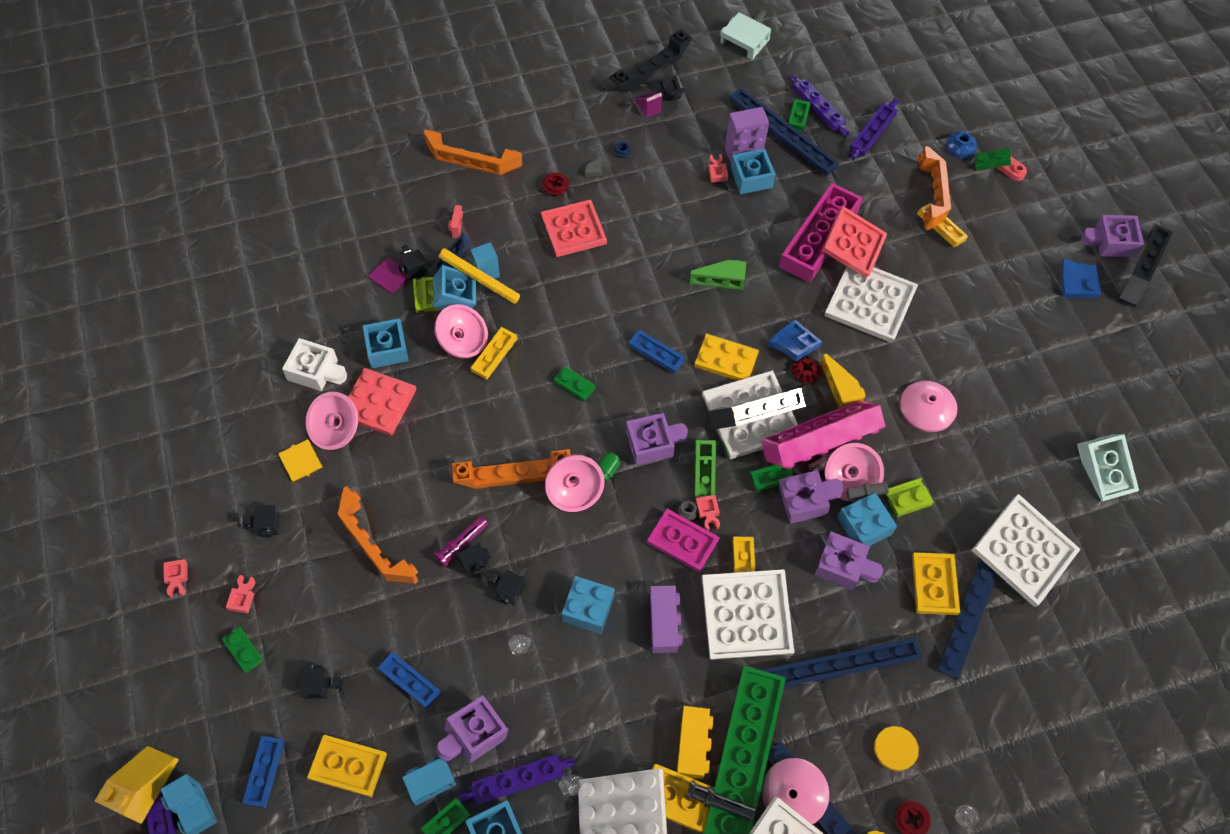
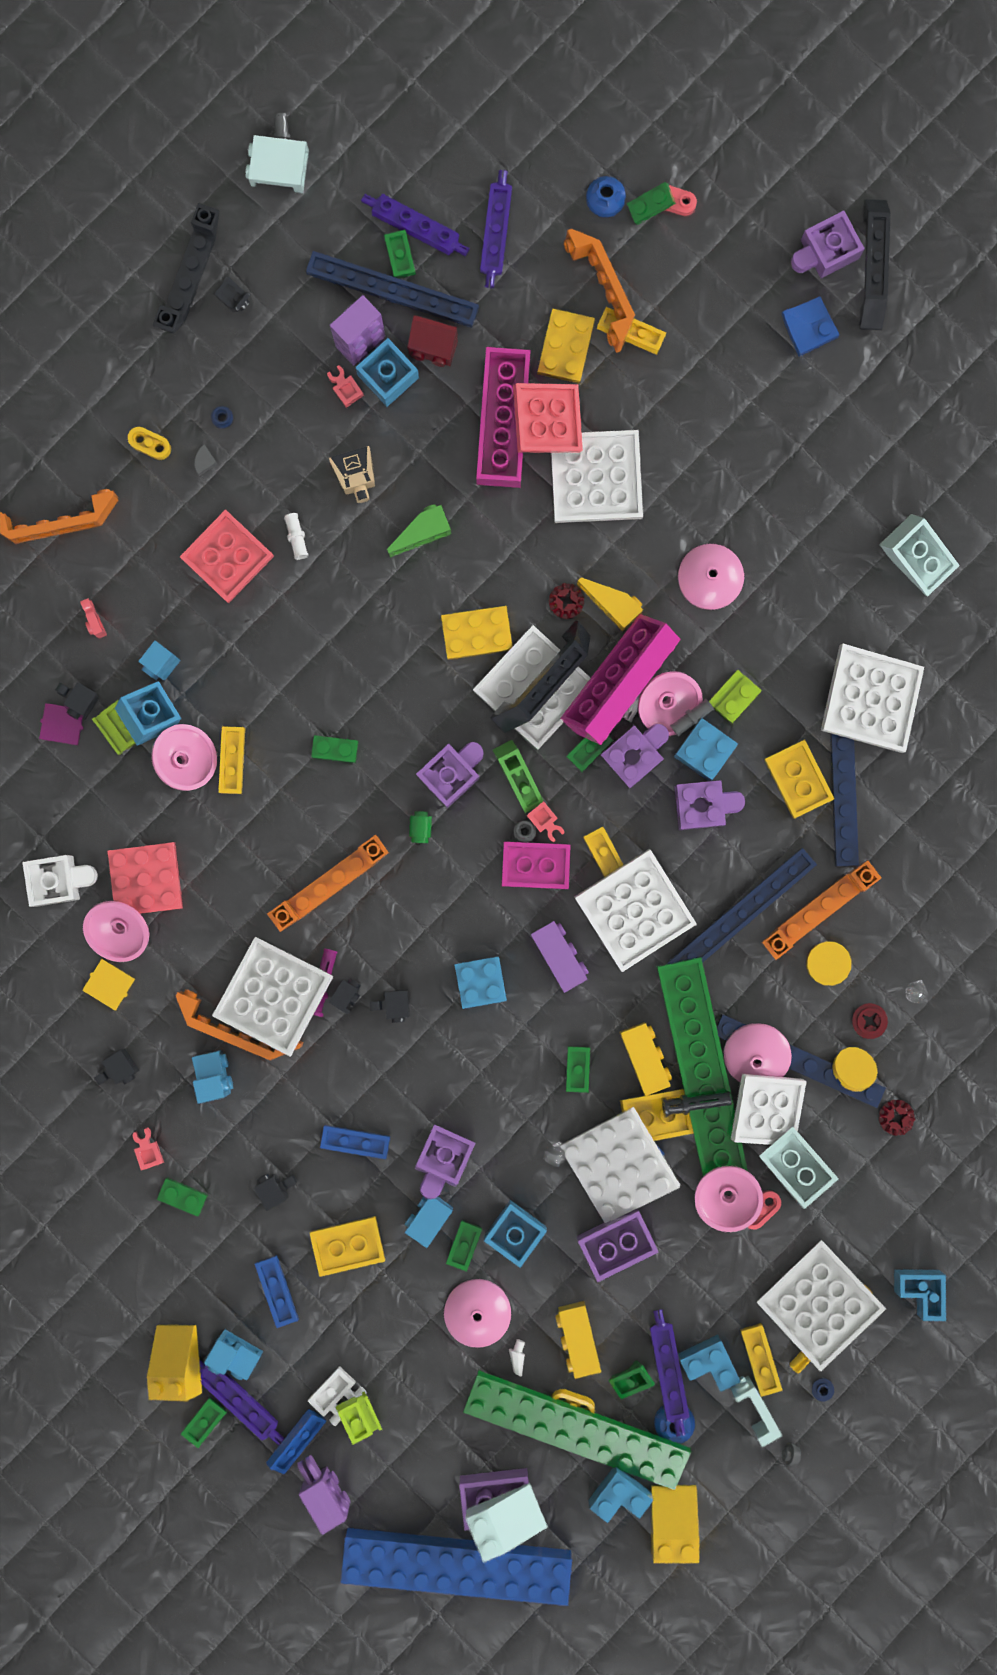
camera: 25 degrees left, 25 degrees up
(174, 574) = (69, 1164): coral plate -> none
(328, 565) = (211, 1076): none -> dark azure brick
(385, 343) = (113, 813): dark azure brick -> none
(416, 527) = (272, 996): none -> white plate
(460, 248) = (121, 673): dark blue plate -> none
(479, 275) = (164, 682): yellow axle -> none
(516, 779) = (504, 1175): dark purple plate -> none
(519, 644) = (437, 1053): clear plate -> none
(551, 179) = (164, 501): dark red gear -> none
(563, 142) = (150, 443): none -> yellow plate
(578, 493) = (400, 868): bright pink dish -> none
(630, 238) = (296, 536): none -> white pin
(630, 721) = (577, 1069): none -> green plate
(650, 104) = (216, 331): magenta slope -> none
(656, 351) = (400, 665): blue plate -> none
(695, 218) = (355, 472): none -> torso
(794, 341) = (539, 574): blue plate -> none
(795, 166) = (432, 341): none -> dark red slope
(891, 213) = (566, 346): none -> yellow plate
(910, 697) = (820, 908): none -> orange slope

